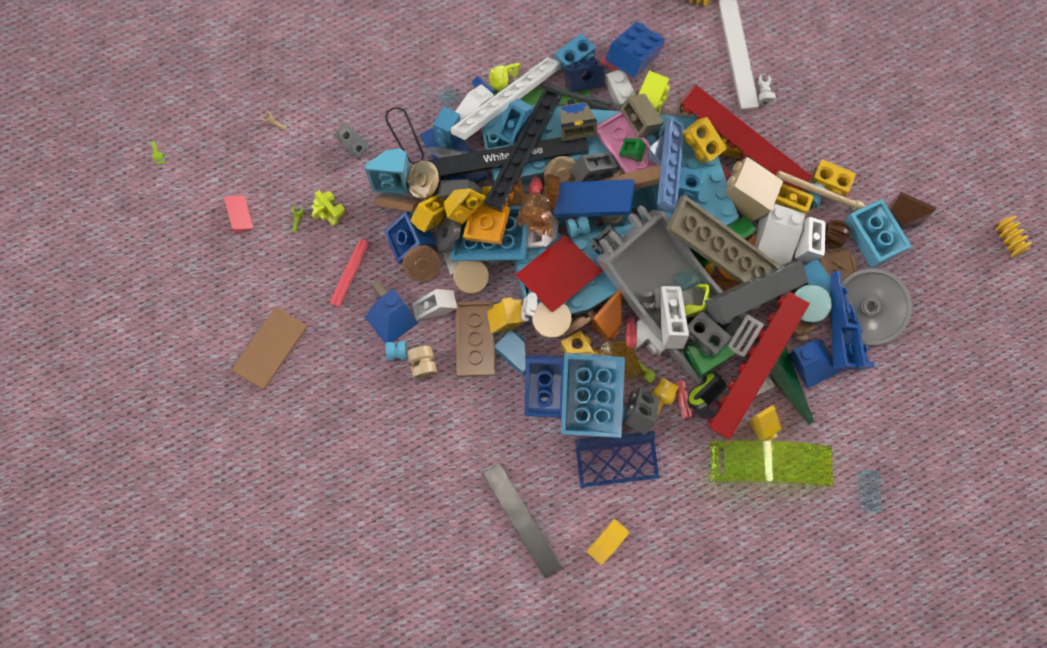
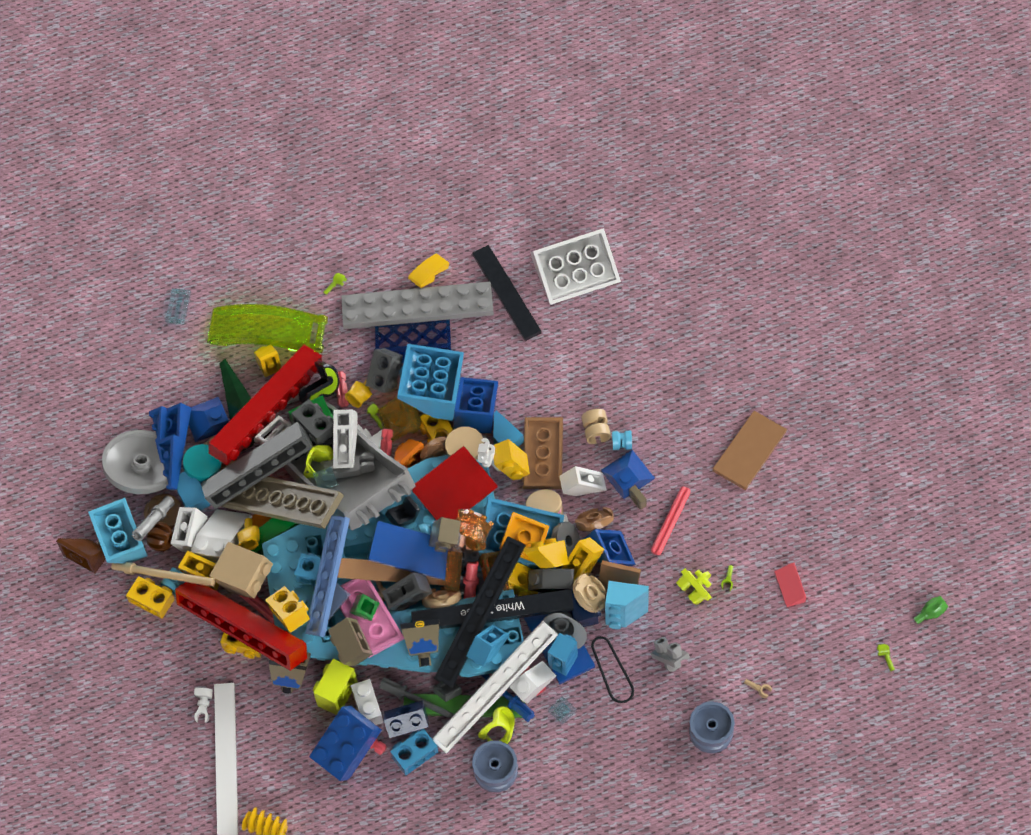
camera: 170 degrees left, 10 degrees down
(109, 194) = (932, 609): none -> bright green piece
(315, 78) = (711, 739): none -> sand blue wheel
(448, 554) = (575, 266): none -> white slope
(503, 41) = (499, 777): none -> sand blue wheel
(562, 202) = (444, 534): none -> dark tan brick
(616, 499) = (417, 305): none -> light grey plate
(704, 529) = (337, 279): none -> lime hand
(752, 227) = (249, 536): none -> yellow piece
(847, 243) = (157, 513): none -> light grey pin

